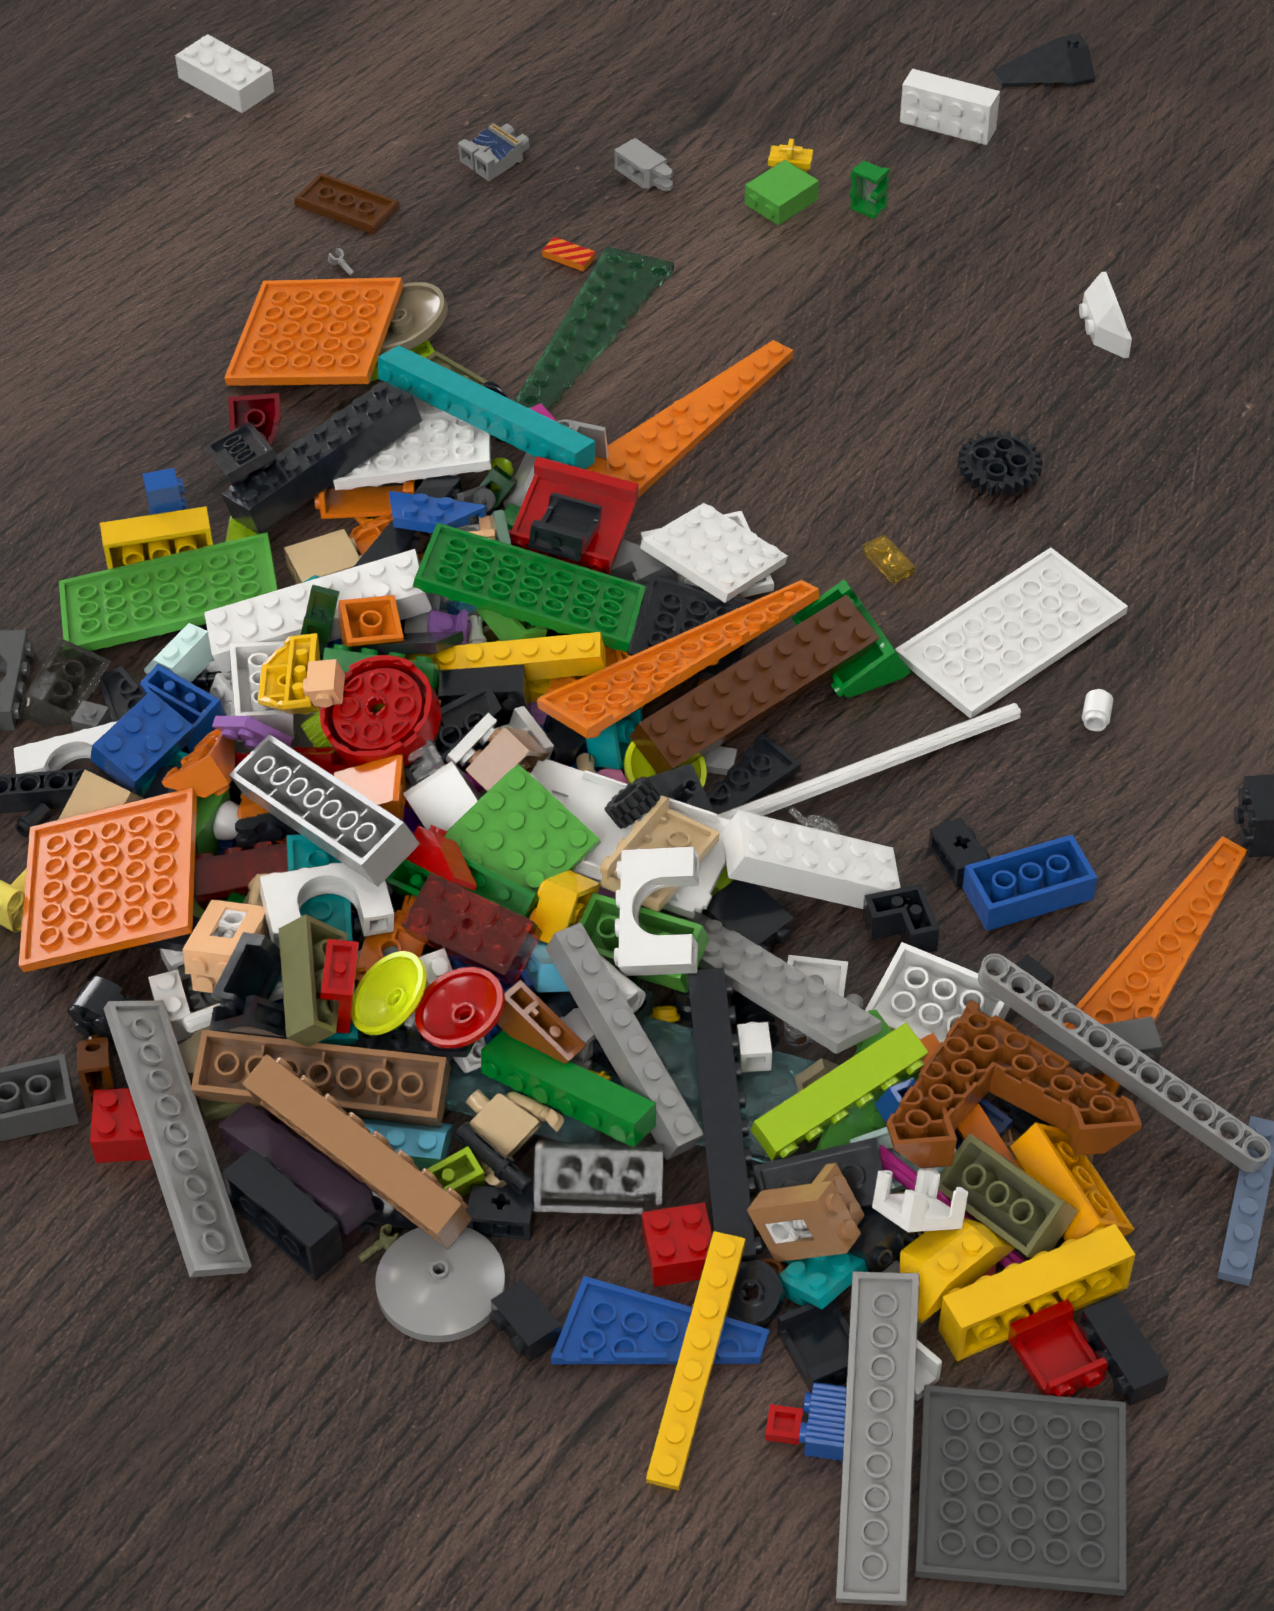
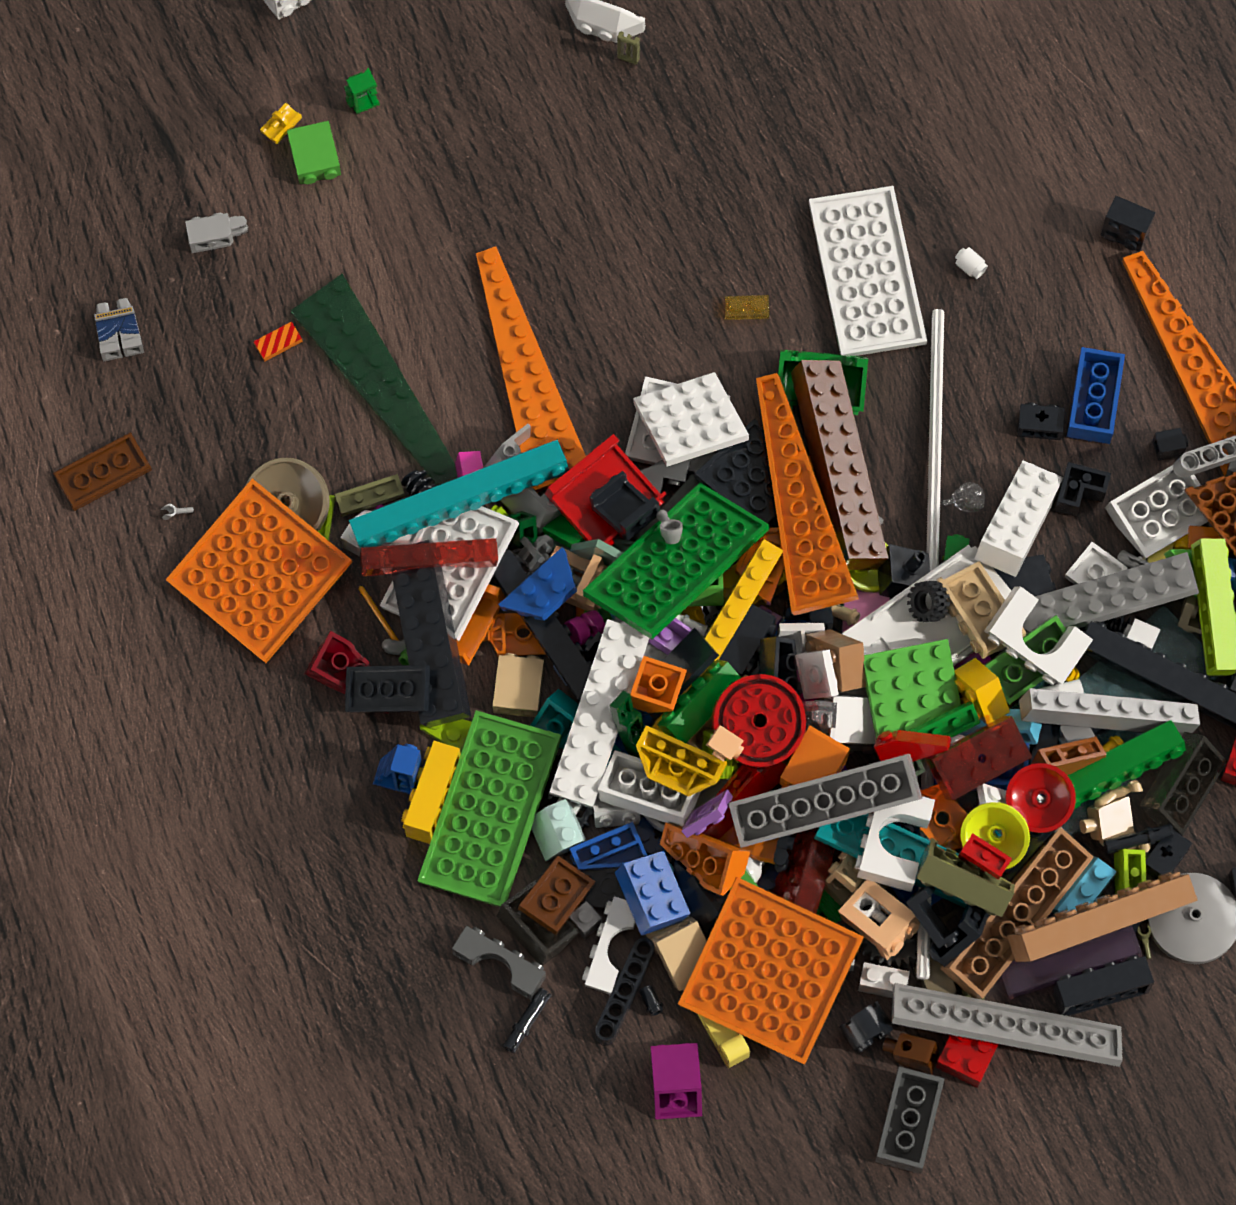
camera: 60 degrees left, 20 degrees up
(97, 677) = (556, 895): none -> reddish brown plate
(372, 378) = (396, 558): none -> clear red arch
(559, 563) = (670, 528): none -> light grey bar
(754, 776) = (898, 510): black wing -> none
(999, 463) = (705, 163): black gear -> none
(1087, 340) = (629, 43): none -> olive tile

